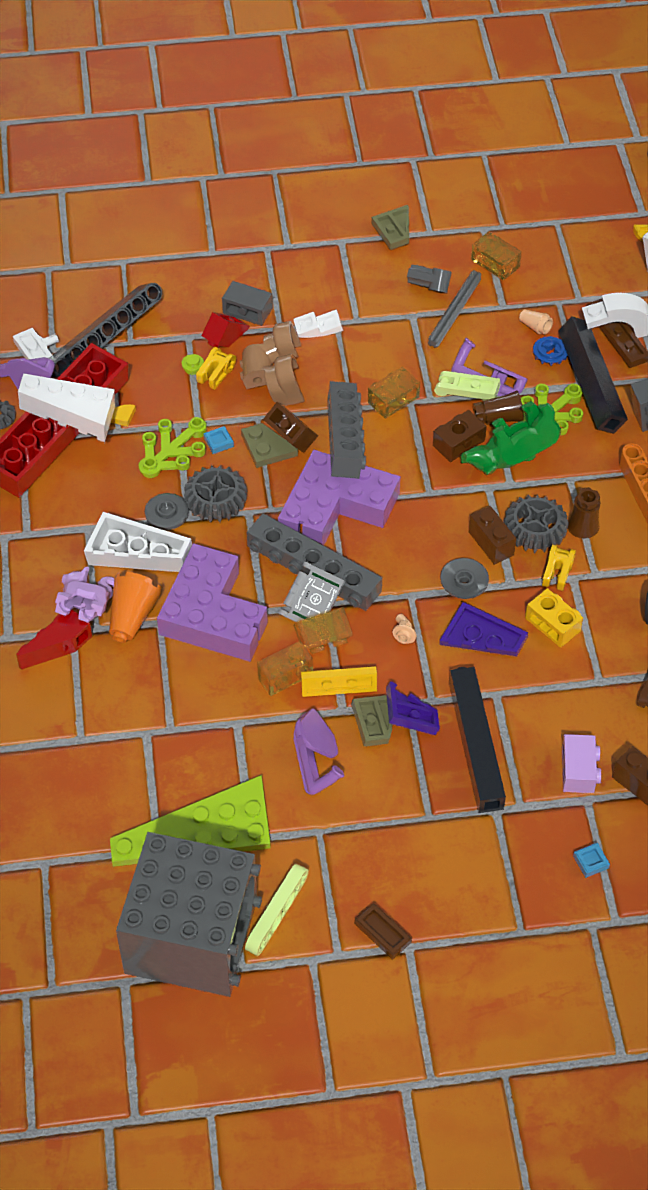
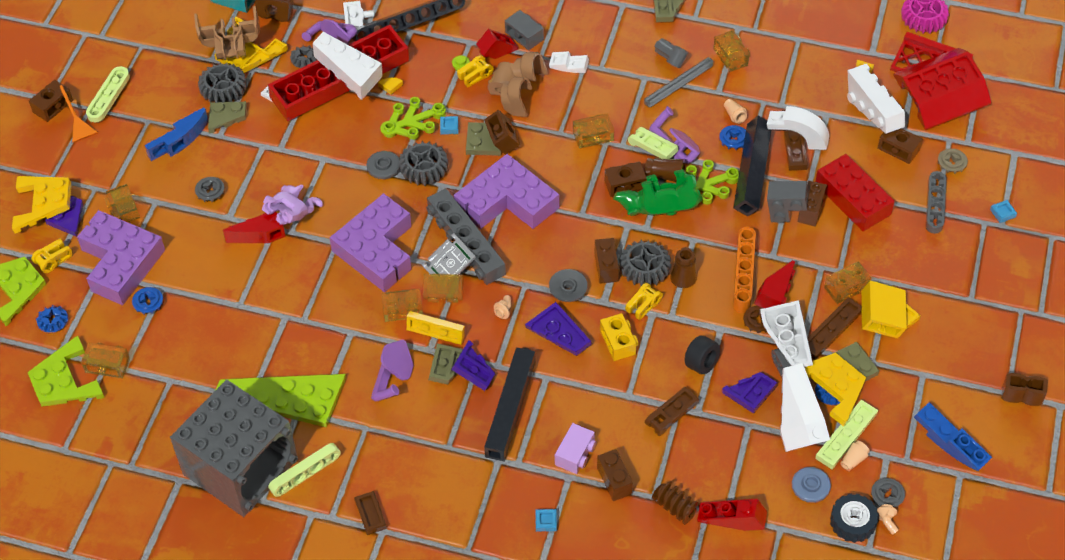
camera: 25 degrees right, 0 degrees up
(131, 604) = (319, 223): orange cone -> none
(135, 546) = (343, 181): white wedge -> none
(345, 430) = (536, 146): dark grey brick -> none

